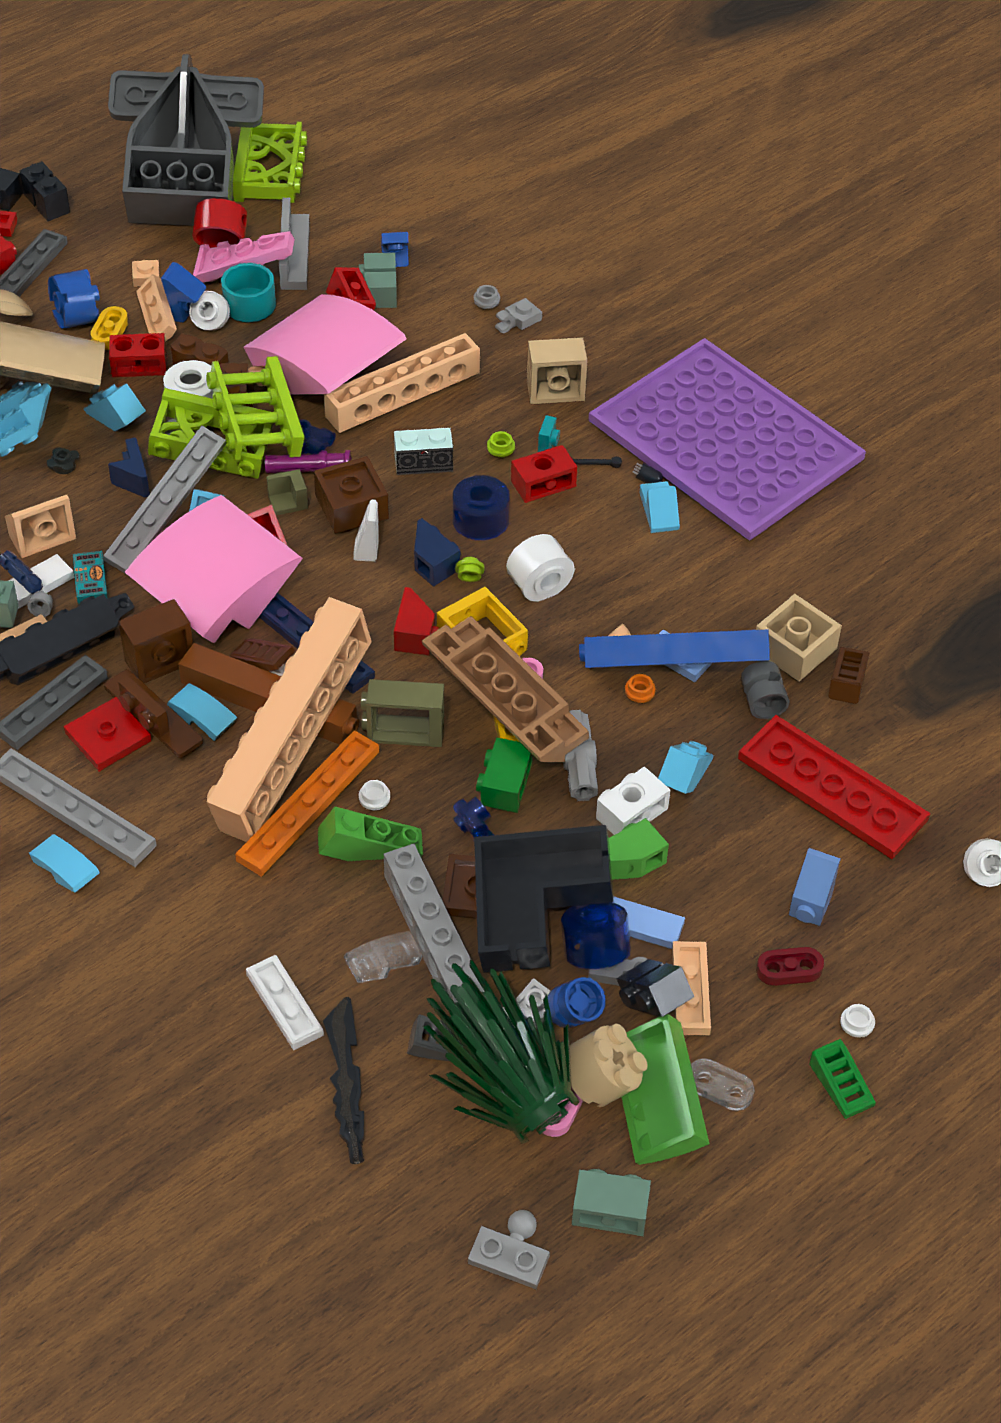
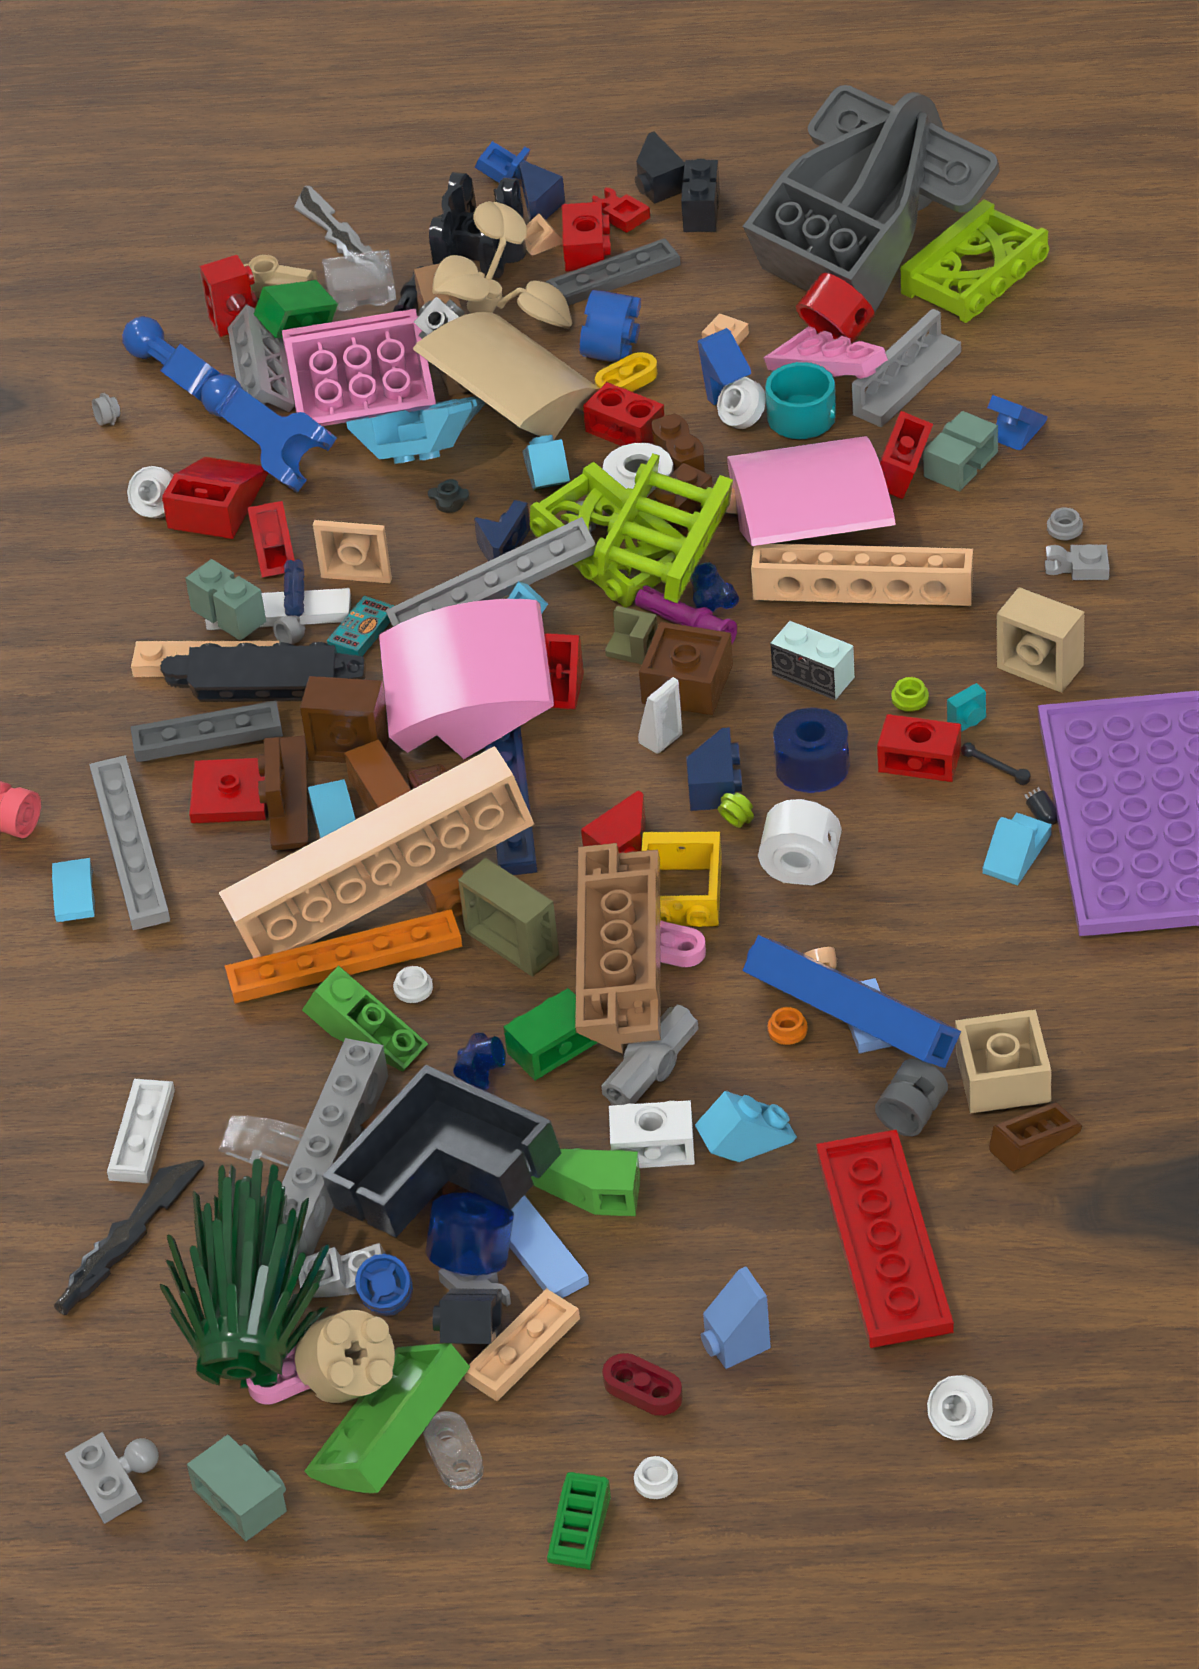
camera: 45 degrees right, 5 degrees down
(156, 307) = (686, 385): light nougat plate -> none

